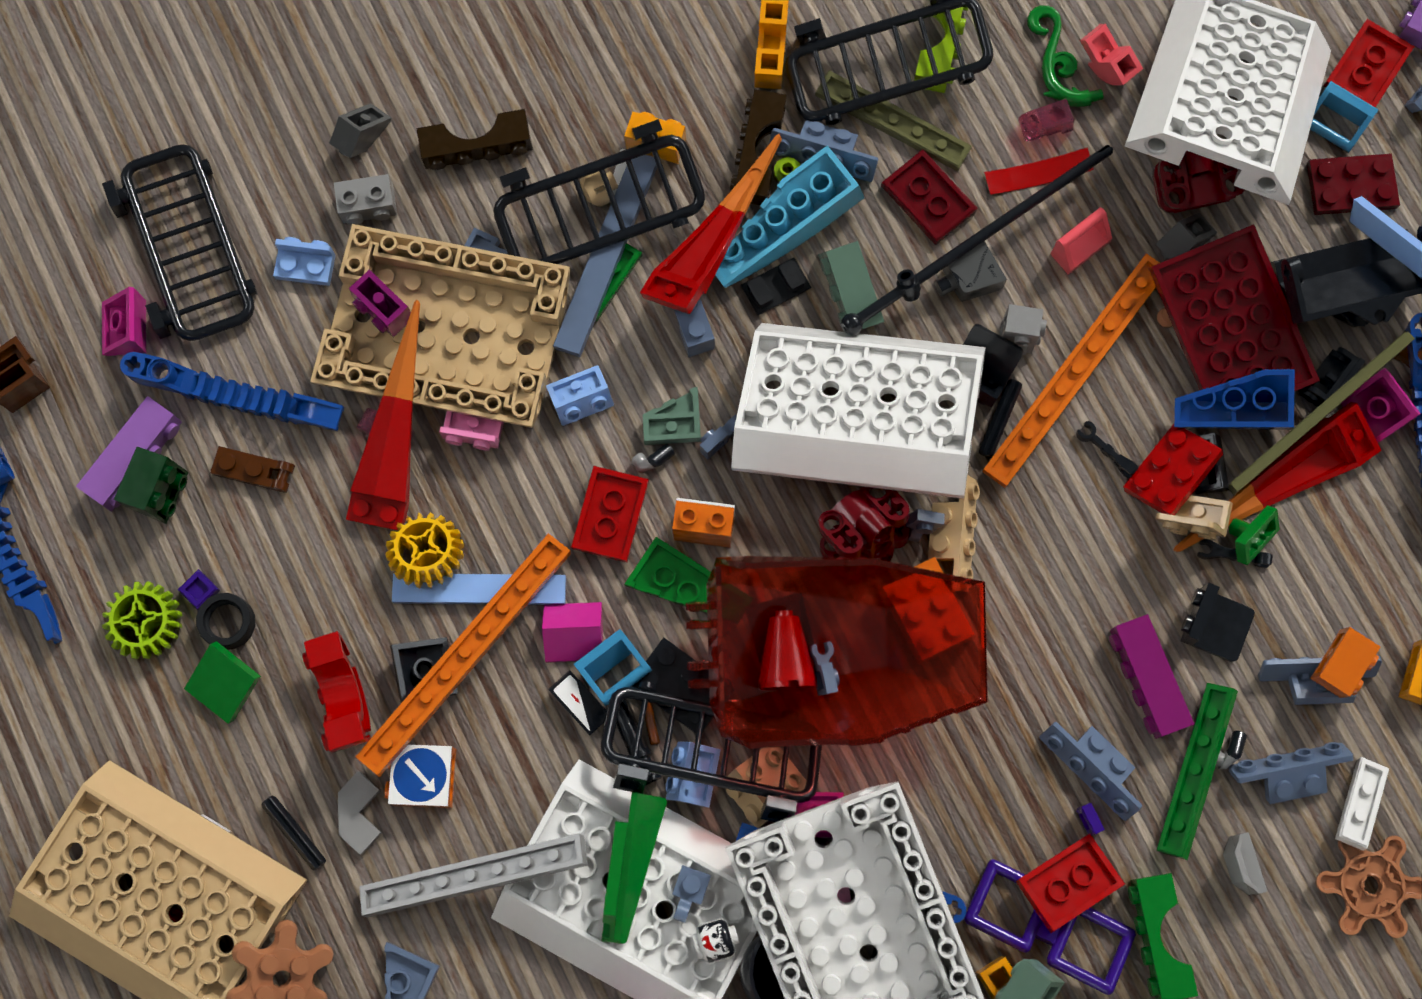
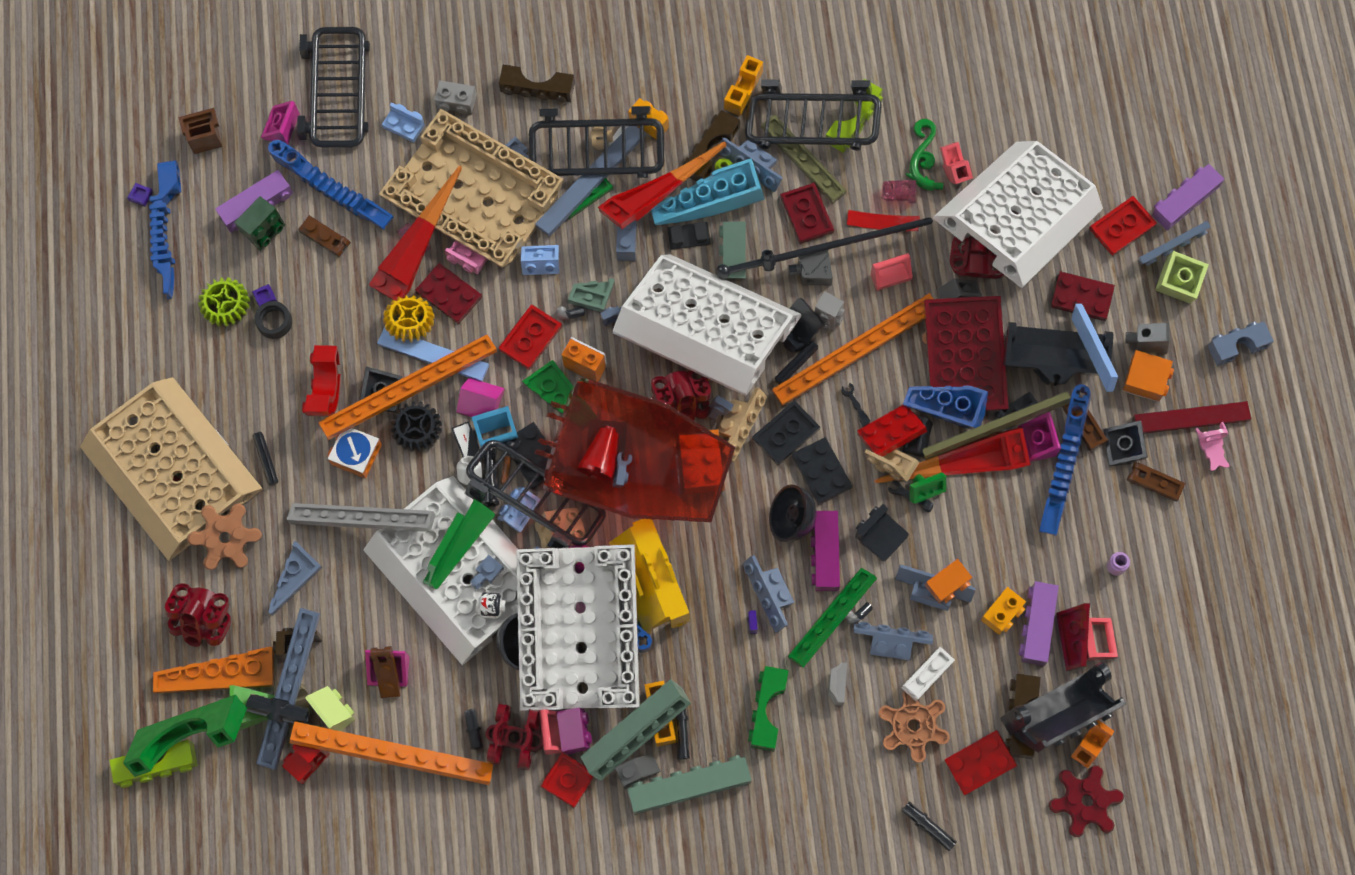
camera: 20 degrees right, 5 degrees down
(222, 682) = (257, 354): green tile -> none
(352, 823) = (307, 452): light grey tile -> none
(358, 130) = (467, 54): dark grey slope -> none
(381, 303) = (438, 160): magenta brick -> none
(466, 490) = (448, 293): none -> dark red plate
(492, 718) = (410, 431): none -> black gear
(591, 745) = (461, 470): none -> white head
(948, 825) = (656, 585): none -> yellow piece
(1026, 525) = (786, 432): none -> black plate
(1057, 939) = (702, 677): dark purple bar -> none
(1070, 883) = (724, 654): red plate -> none
(1087, 644) = (792, 514): none -> black piece
(1096, 561) = (821, 470): none -> black plate
(1349, 107) = (1098, 246): dark azure tile -> none

